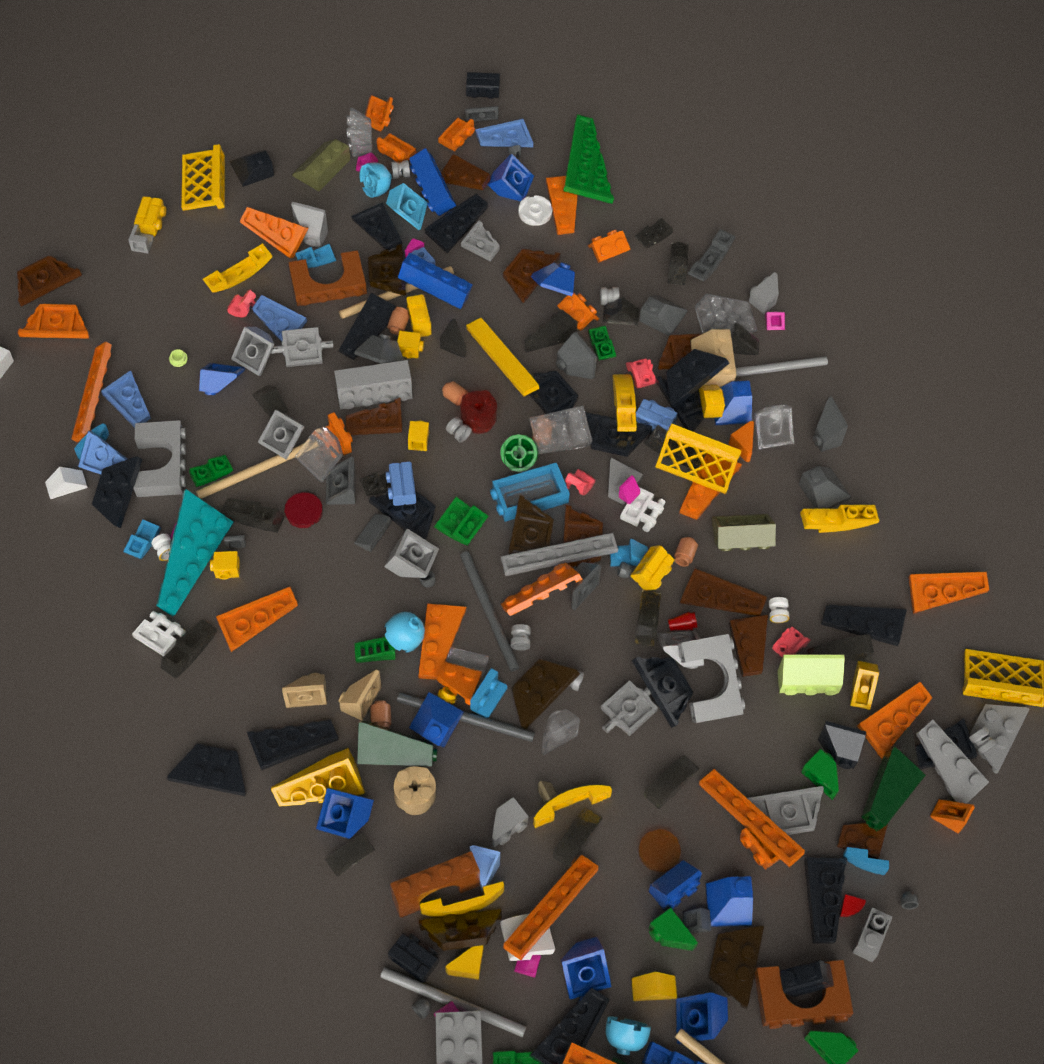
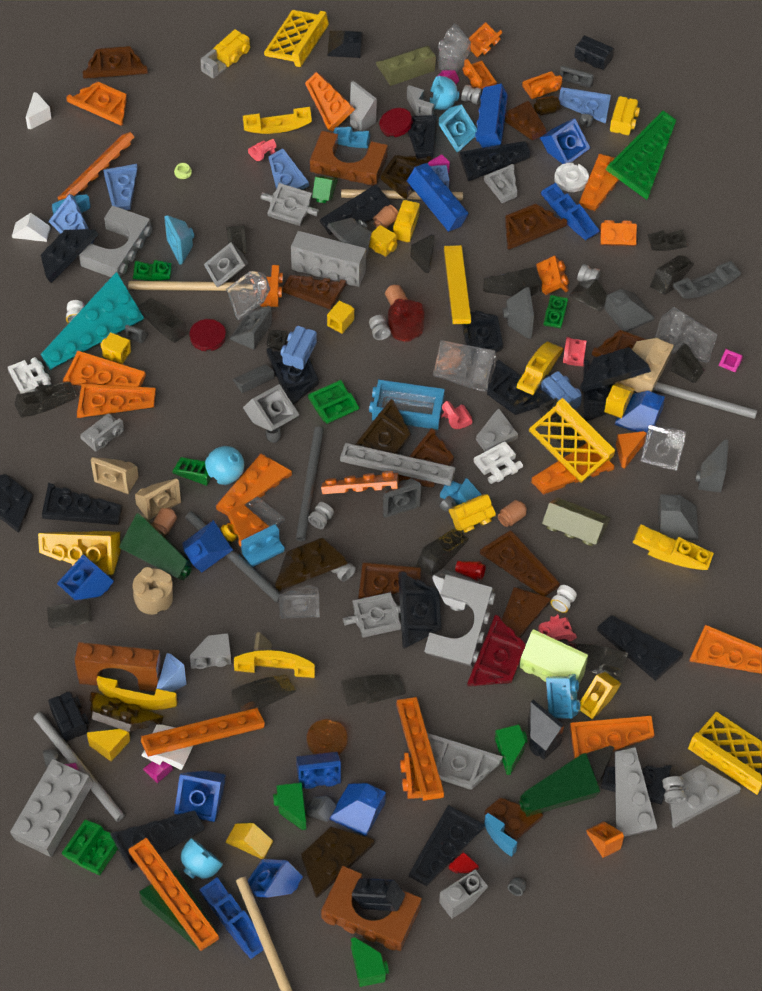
camera: 30 degrees right, 5 degrees down
(141, 542) = (58, 302): dark azure slope -> none
(217, 376) = (204, 199): slope -> none
(218, 427) = (179, 237): none -> medium azure slope
(222, 596) = (99, 371): none -> orange wing
(253, 349) = (247, 188): light grey slope -> none
(264, 654) = (102, 432): none -> light grey bracket
(323, 317) = (324, 188): none -> slope
(348, 224) = (396, 122): none -> dark red tile
(361, 201) = (416, 100): none -> light grey slope
(473, 151) = (547, 105): none -> dark brown brick
(519, 452) = (417, 367): green cylinder -> none
(546, 133) = (624, 115): none -> yellow brick
(552, 242) = (566, 208): none -> blue slope
(556, 278) = (546, 238): blue slope -> none
(615, 670) = (383, 579): none -> reddish brown wing
(629, 490) = (493, 439): dark pink slope -> none
(760, 692) = (498, 656): none -> dark red wing
(765, 294) = (736, 333): light grey slope -> none
(839, 704) = (563, 696): none -> dark azure bracket

